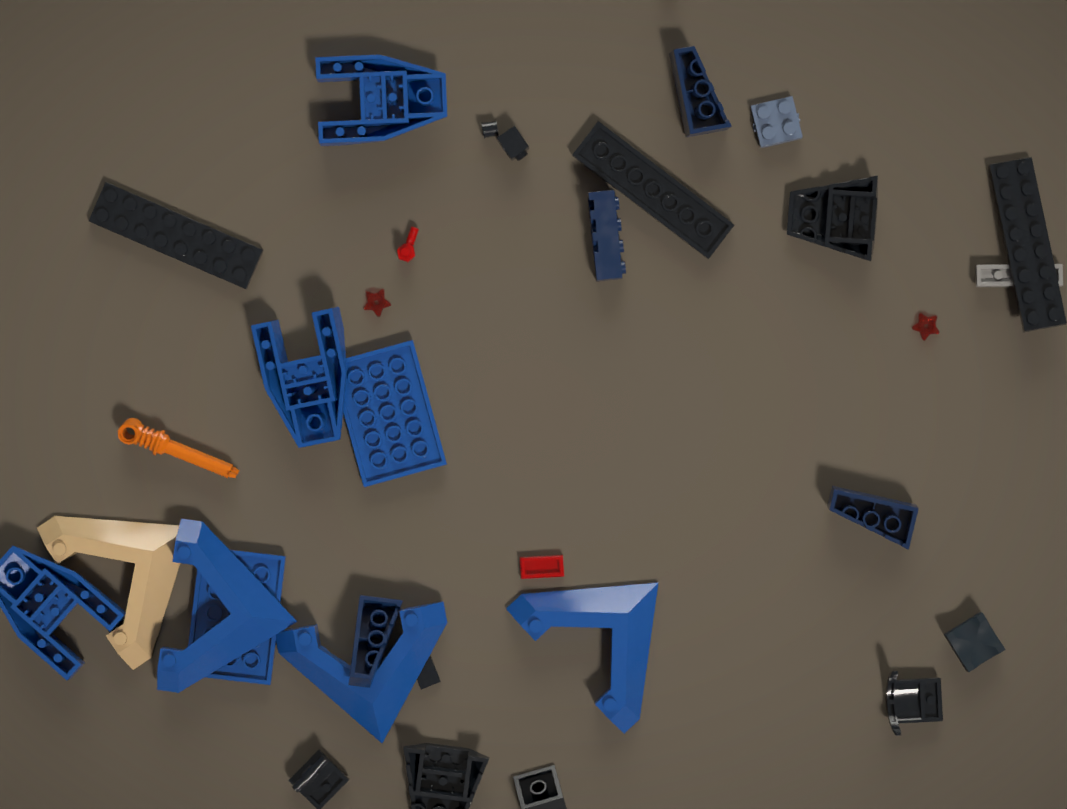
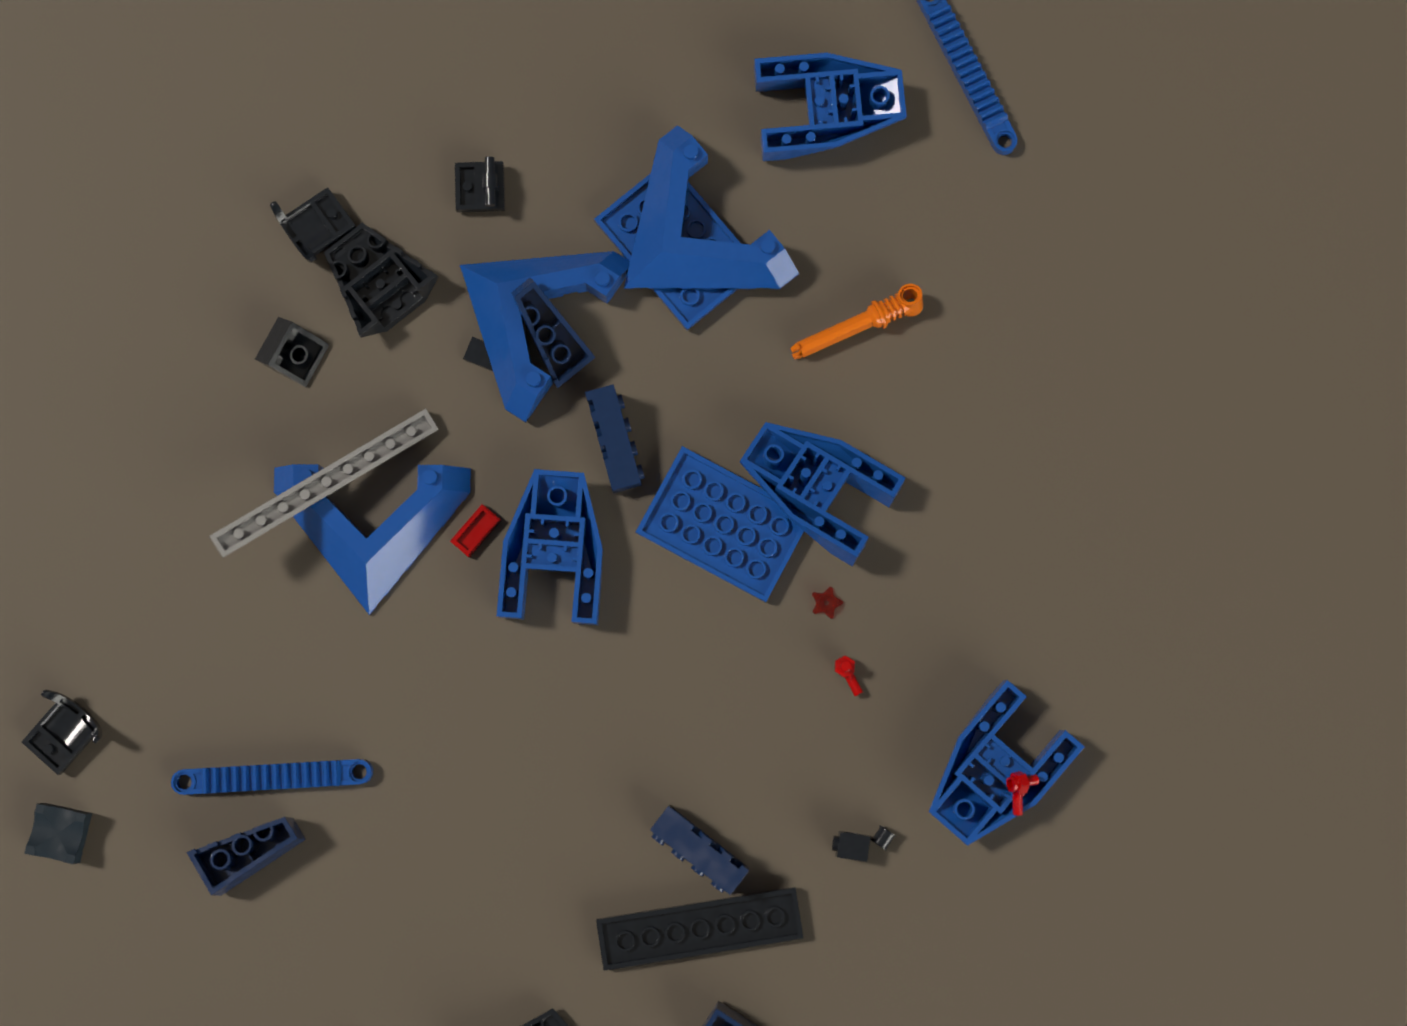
camera: 130 degrees right, 5 degrees down
(153, 576) = (817, 216): tan wedge -> none
(176, 235) = (1039, 489): black plate -> none
(378, 76) = (1019, 785): none -> red piece
(400, 534) = (613, 438): none -> dark blue wedge
(496, 513) = (553, 533): none -> blue wedge
(602, 687) = (323, 483): none -> light grey plate
(814, 544) = (271, 776): none -> blue gear

